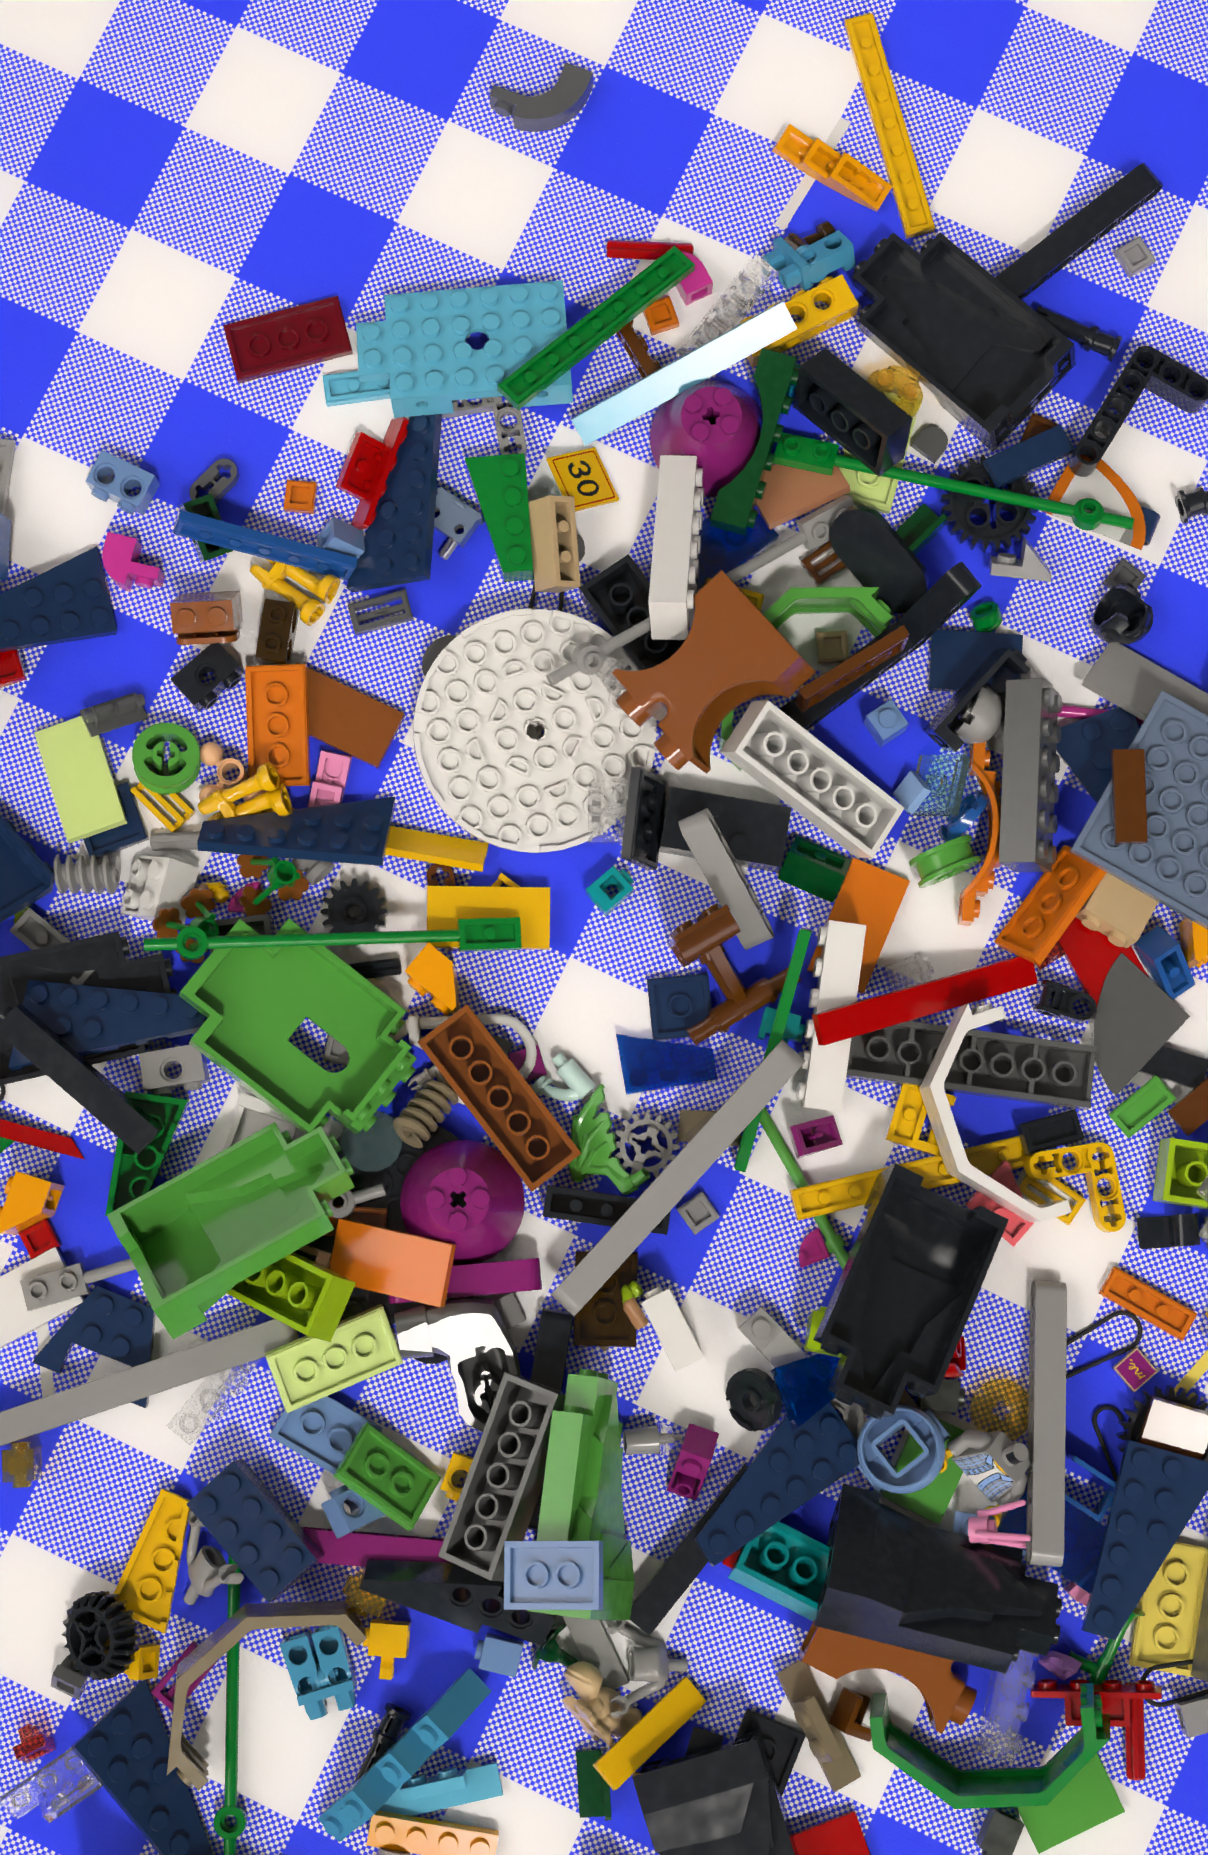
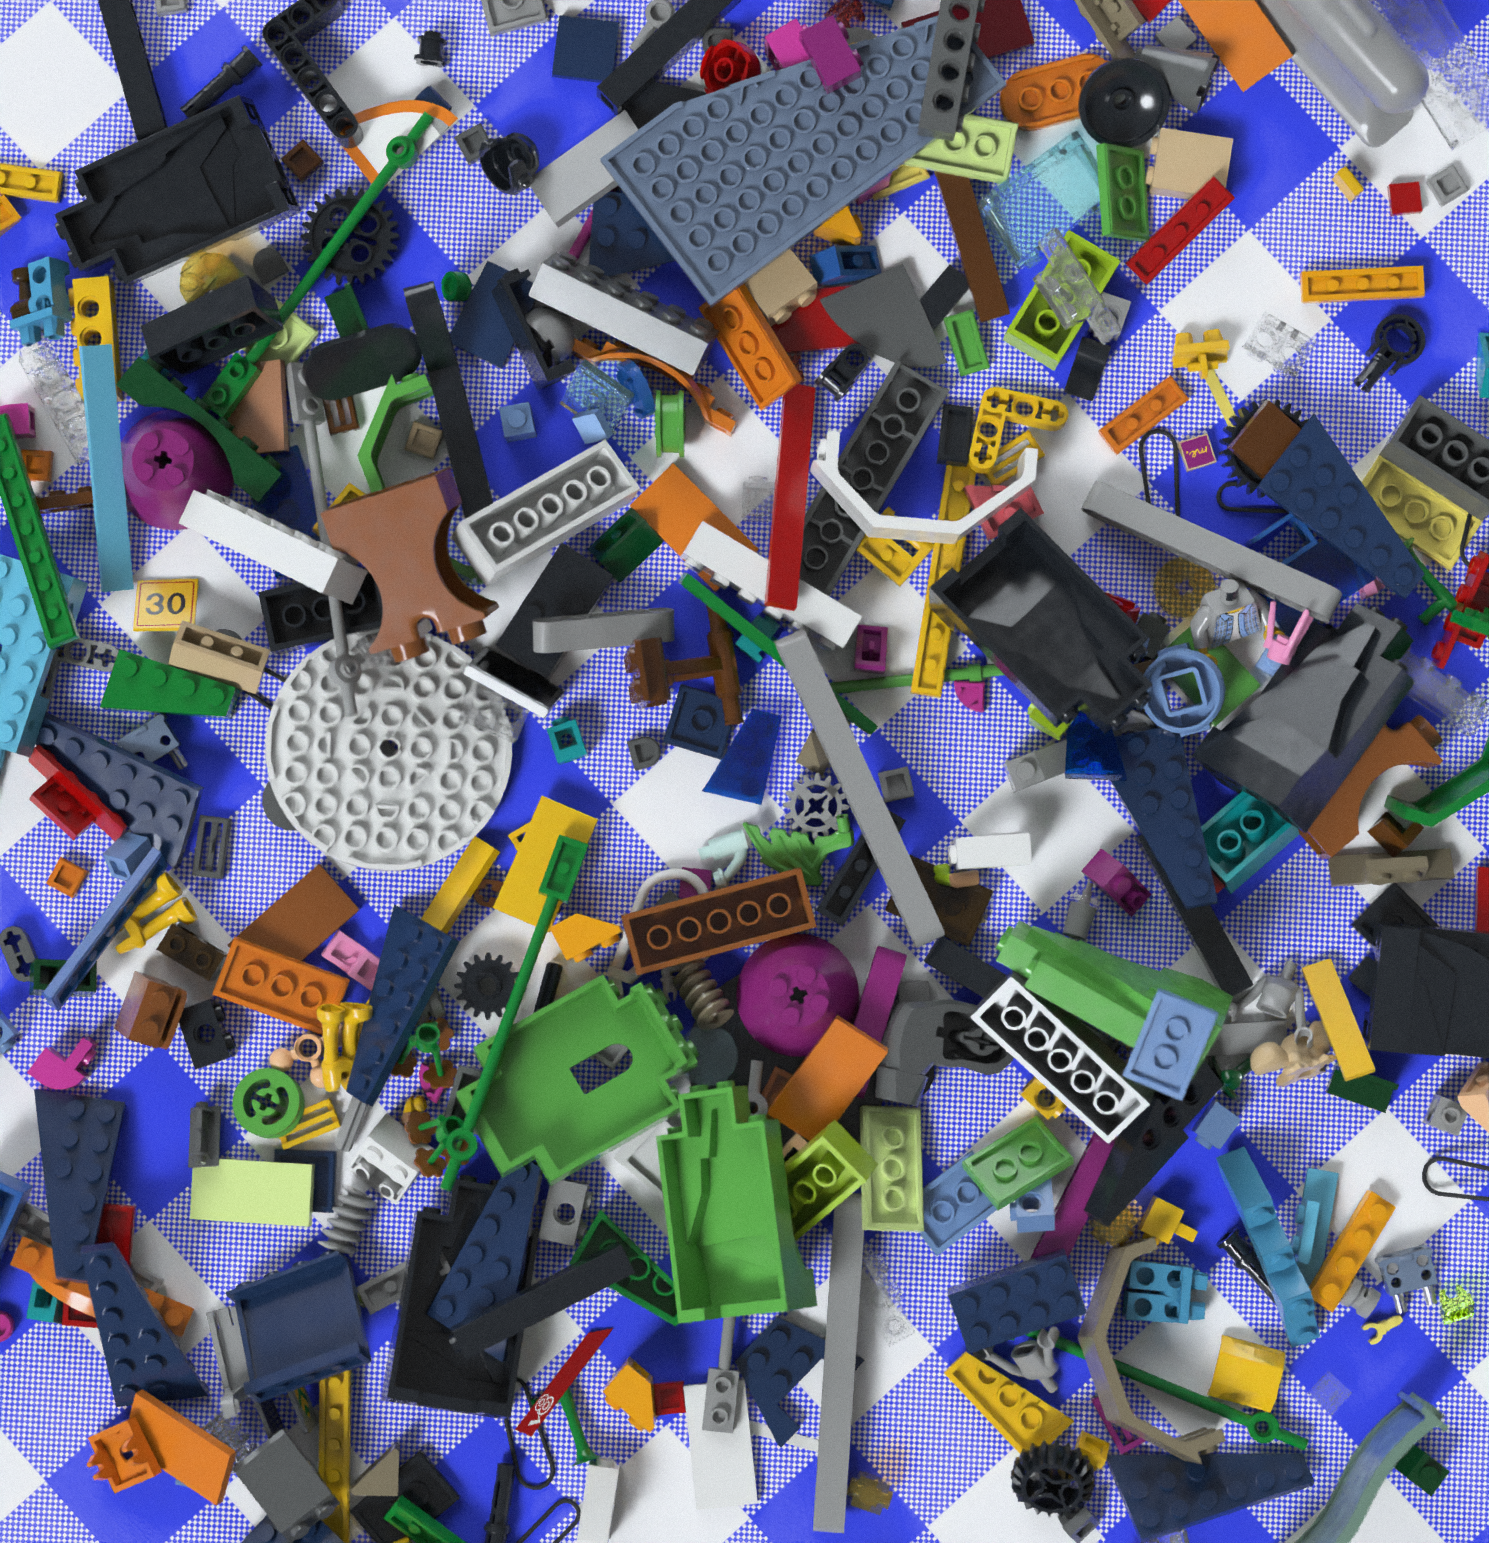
camera: 65 degrees left, 5 degrees up
(275, 1785) = (1247, 1373): none -> yellow slope
(629, 966) = (644, 752): none -> dark grey tile
(766, 1394) = (1081, 791): black tile -> none
(852, 669) = (458, 431): reddish brown tile -> none
(1028, 456) = (322, 181): dark blue tile -> none
(1029, 565) = (426, 229): light grey slope -> none
(1060, 1664) = (1425, 631): medium lavender tile -> none
(1129, 796) = (685, 232): reddish brown tile -> none

